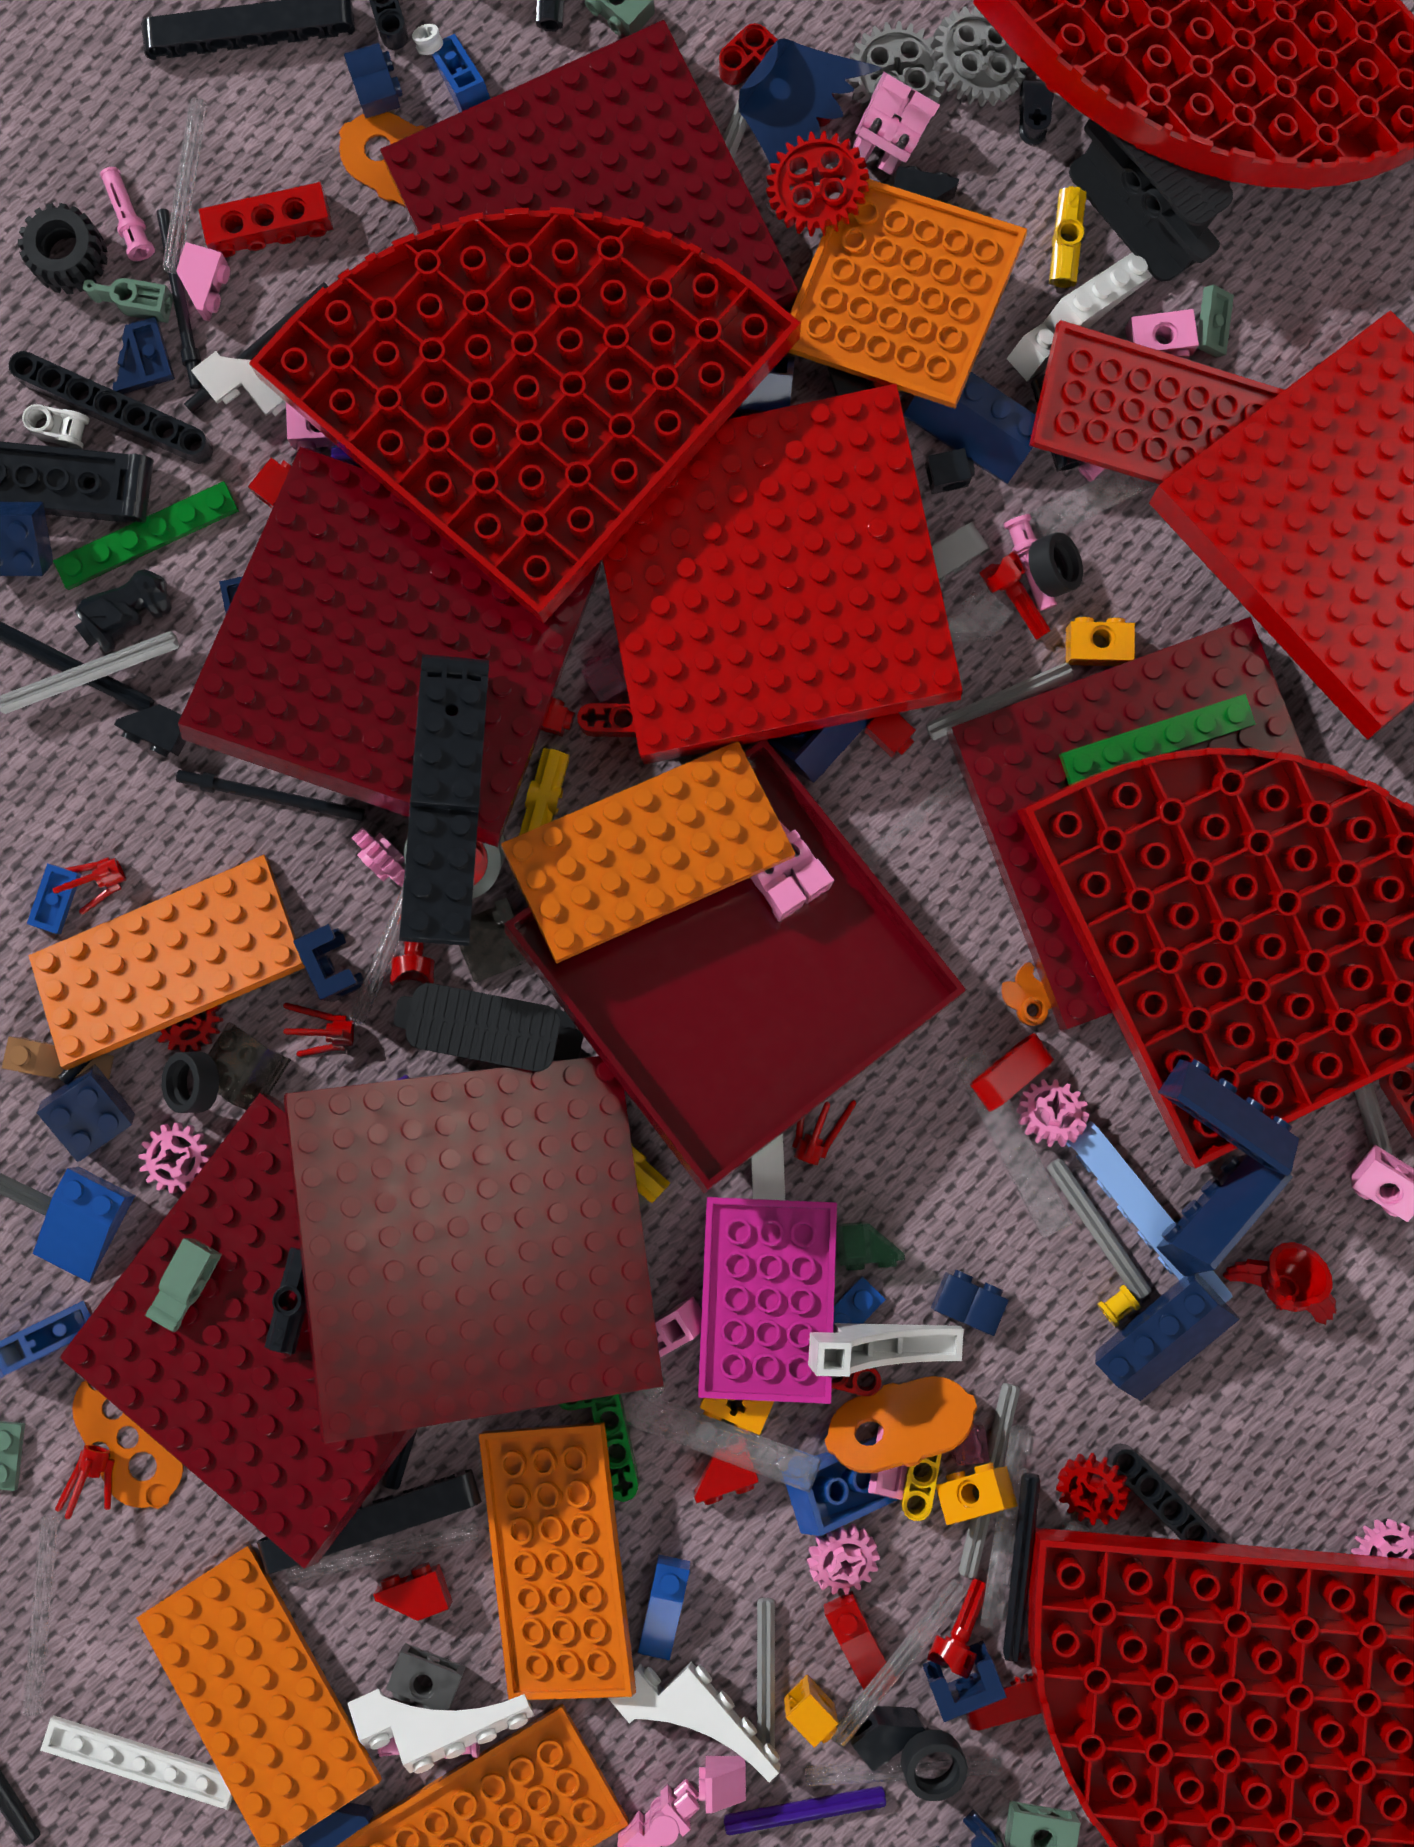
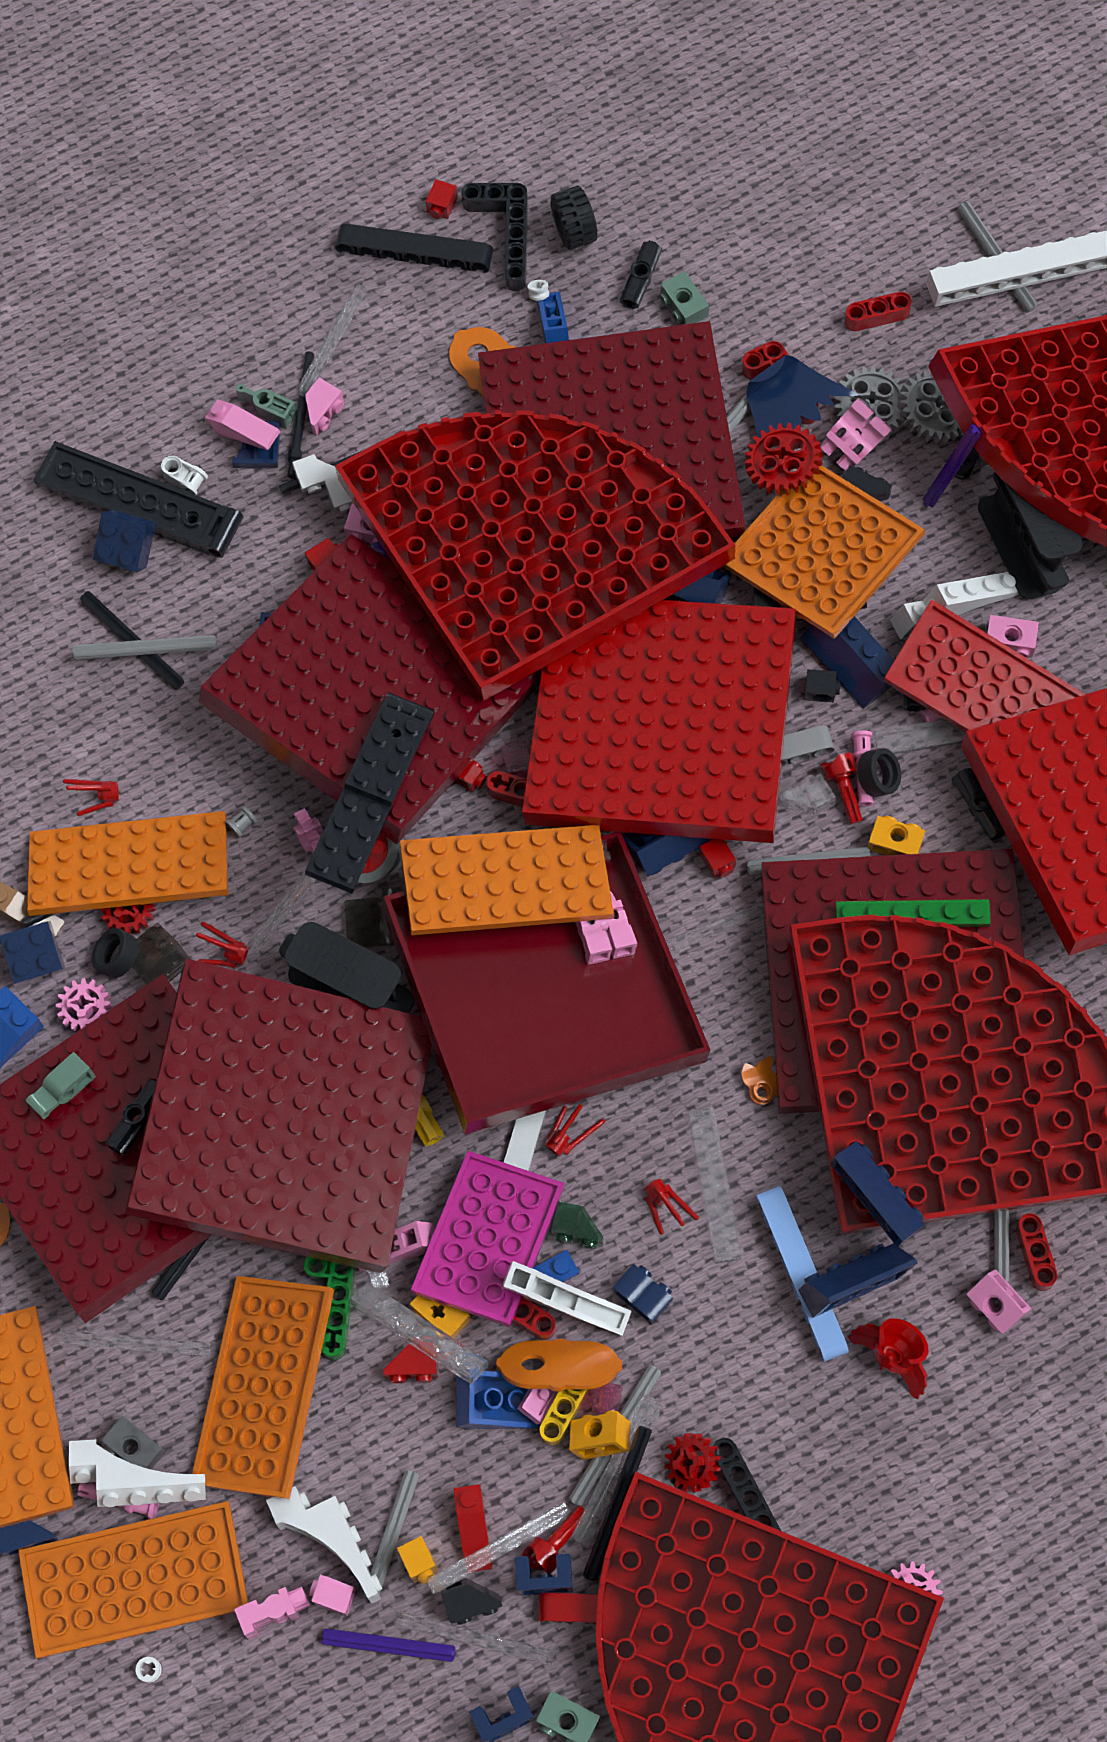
camera: 20 degrees right, 15 degrees down
(47, 229) = (230, 342): black tyre -> none
(51, 908) = (60, 799): blue plate -> none
(101, 397) = (221, 465): black beam -> none
(107, 337) = (241, 425): none -> bright pink slope
(116, 610) = (178, 611): black animal -> none
(130, 225) = (283, 356): bright pink pin -> none
(142, 538) = (217, 568): green plate -> none
(155, 725) = (180, 699): black slope -> none
(210, 782) = (204, 750): black bar -> none
(251, 212) = (373, 370): red brick -> none
(288, 862) = (241, 821): none -> light grey bush
(320, 968) = (238, 892): dark blue panel -> none
(372, 80) = (489, 306): dark blue brick -> none
(390, 1516) = (137, 1314): black beam -> none
(412, 965) = (309, 912): red piece -> none
(417, 1594) = (150, 1380): red slope -> none
(545, 790) = (451, 819): yellow piece -> none
(664, 1607) = (331, 1451): blue slope -> none
(843, 1559) = (491, 1453): bright pink gear -> none
(944, 1785) = (483, 1645): black tyre -> none
(950, 1175) = (659, 1194): none -> red plant
(1011, 1072) = (728, 1128): red beam -> none
(1035, 130) = (952, 466): none -> dark purple axle
(1052, 1113) = (751, 1169): bright pink gear -> none
(1068, 221) = (967, 537): yellow piece -> none
(1098, 1229) = (761, 1270): light grey axle -> none
(1119, 1306) = (758, 1332): yellow bush -> none
(1165, 1336) = (785, 1362): dark blue slope -> none
(1171, 552) = (971, 792): none -> black piece
(1215, 320) = (1055, 636): sand green plate -> none

